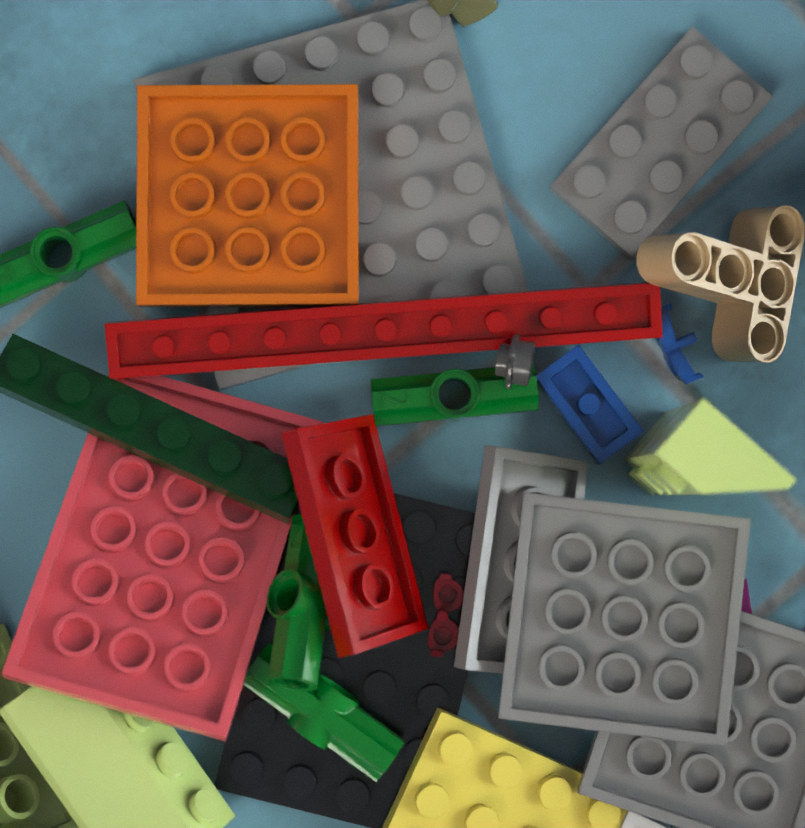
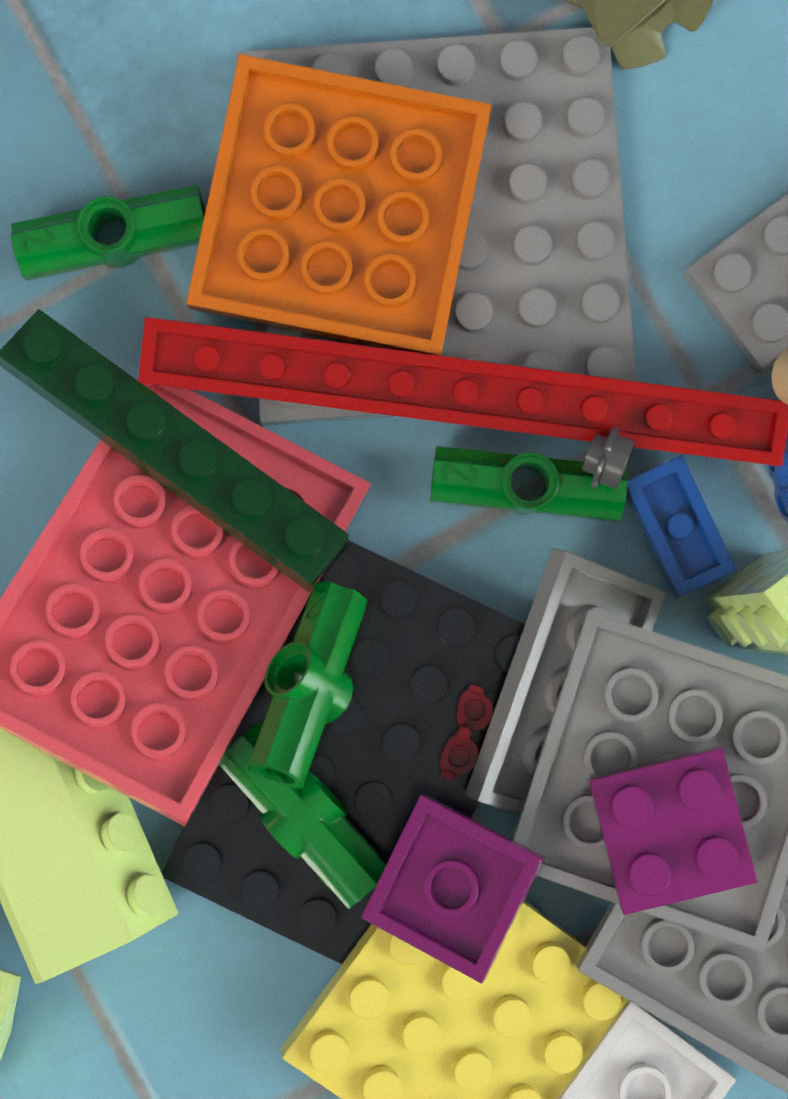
camera: 10 degrees right, 0 degrees up
(354, 533) = (382, 617): red plate -> none
(458, 746) = (452, 888): none -> magenta plate
(629, 660) = (672, 830): none -> magenta plate

